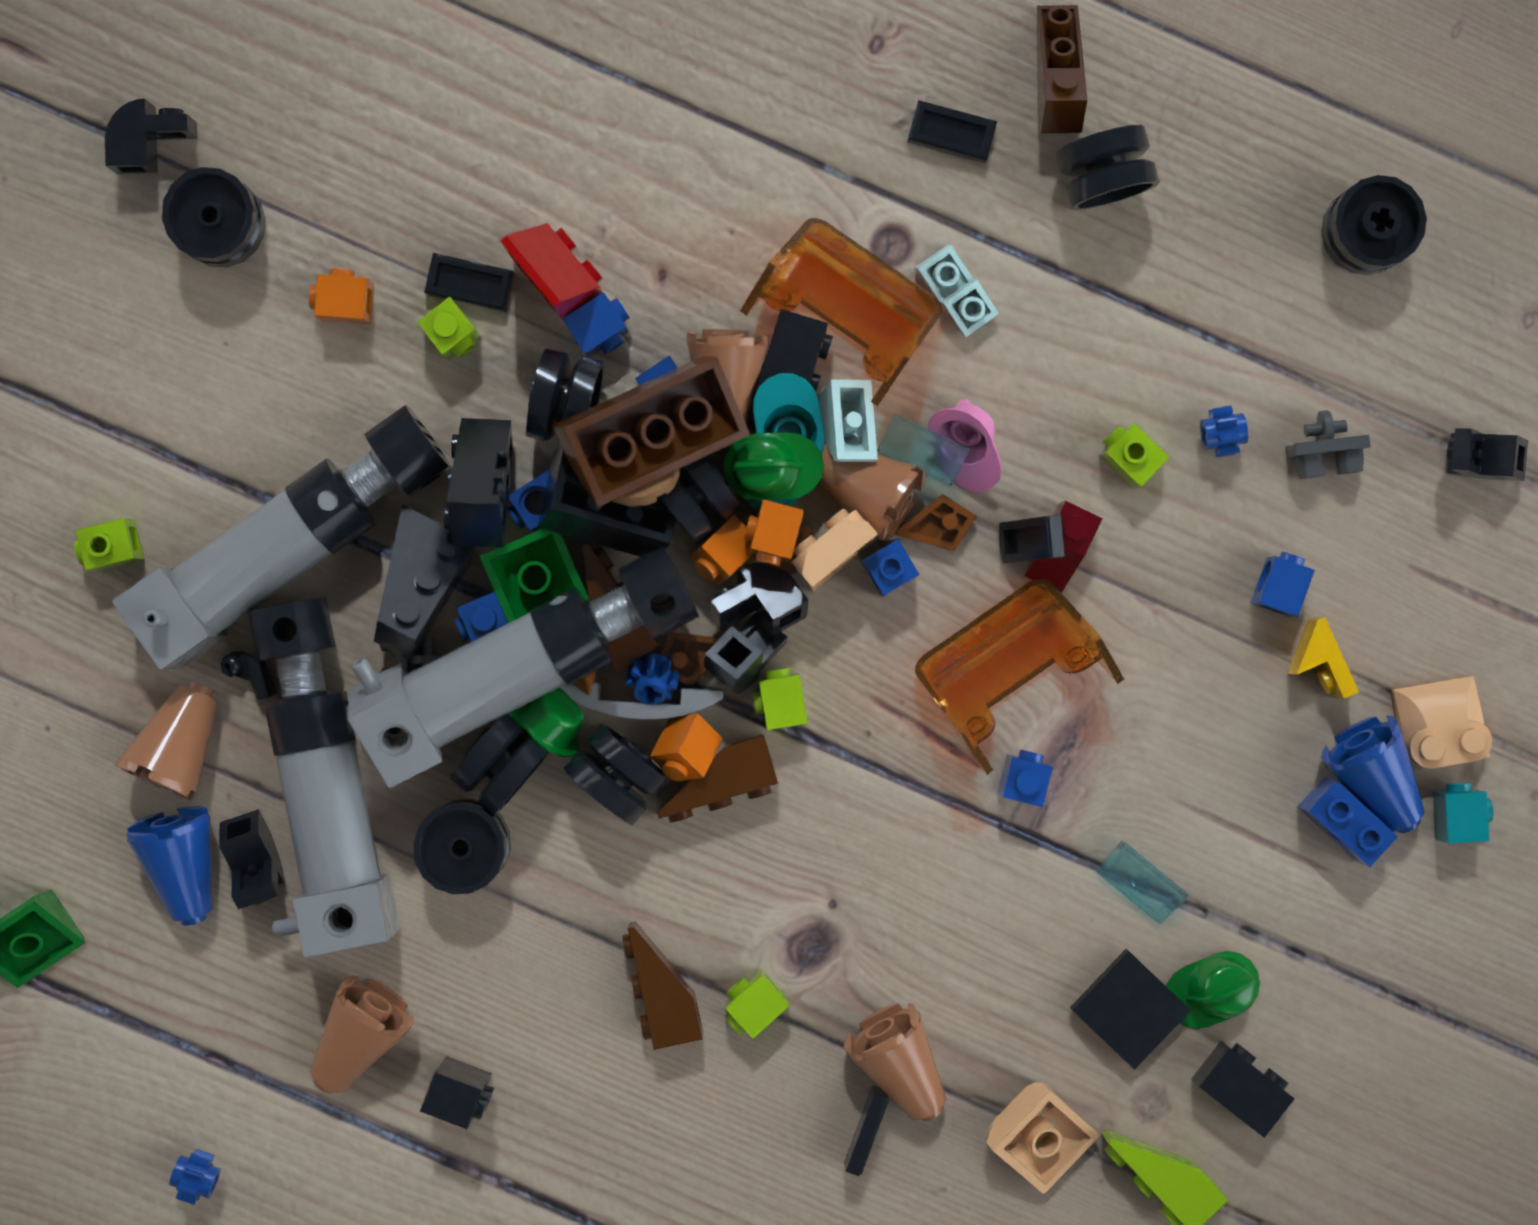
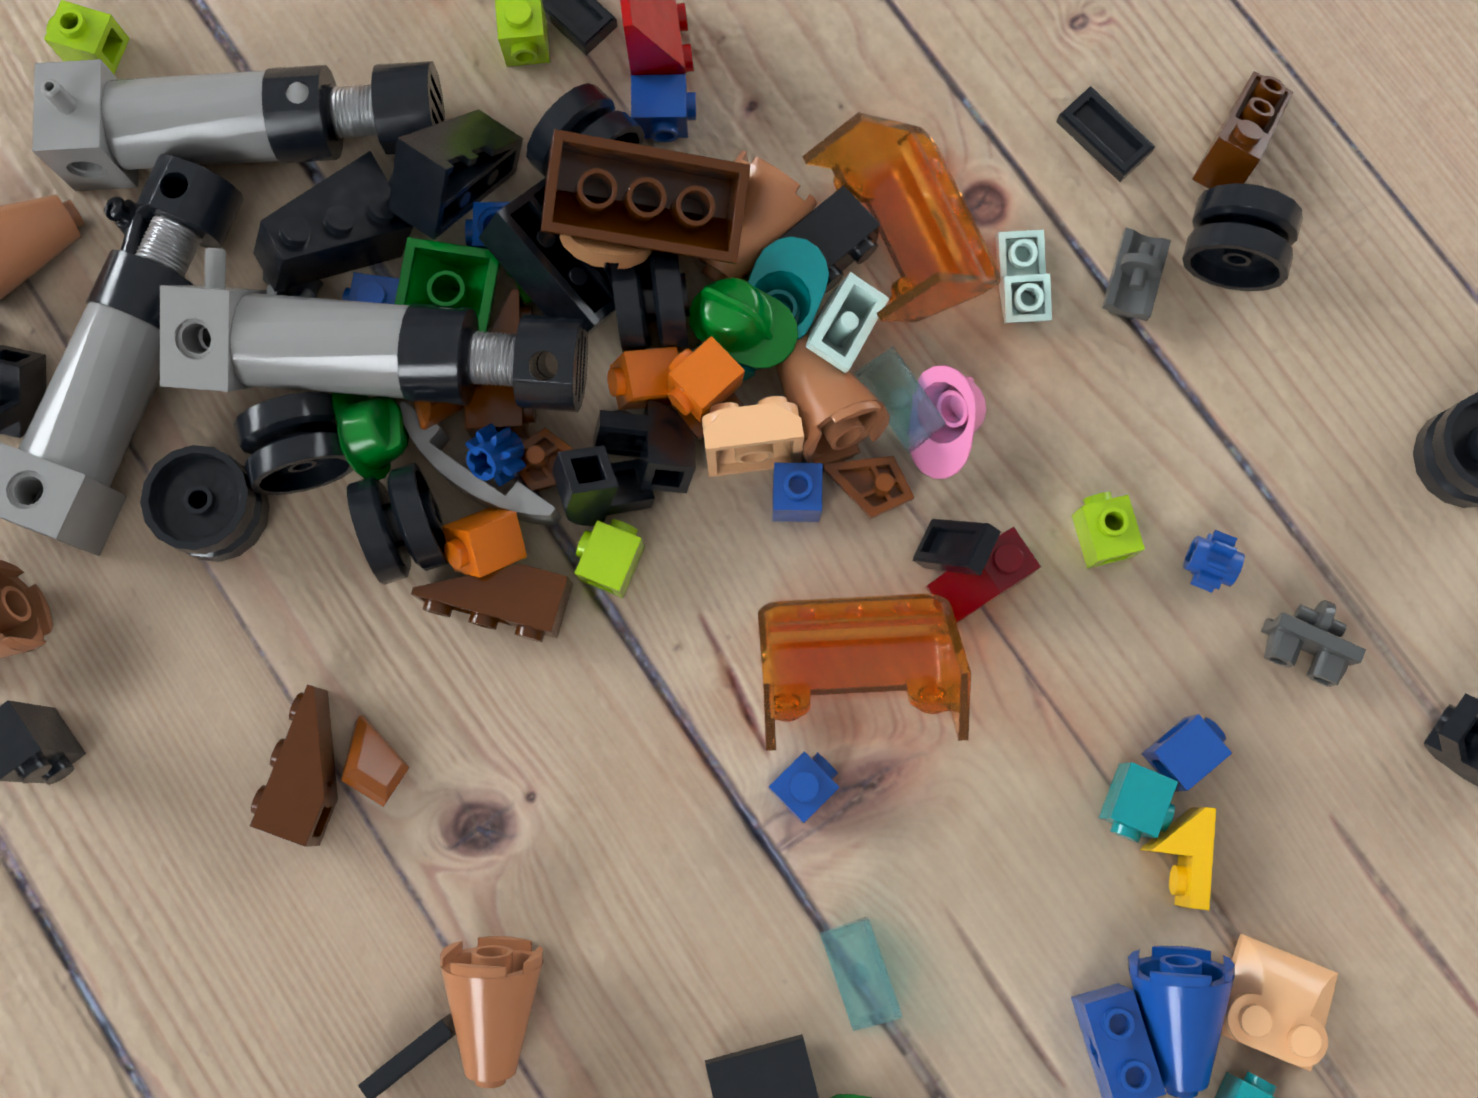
camera: 35 degrees right, 10 degrees down
(706, 953) = (372, 763): none -> dark orange piece
(754, 1004) = (384, 846): lime brick -> none
(1043, 241) = (1136, 275): none -> dark grey hips
(1268, 643) = (1138, 802): none -> teal brick

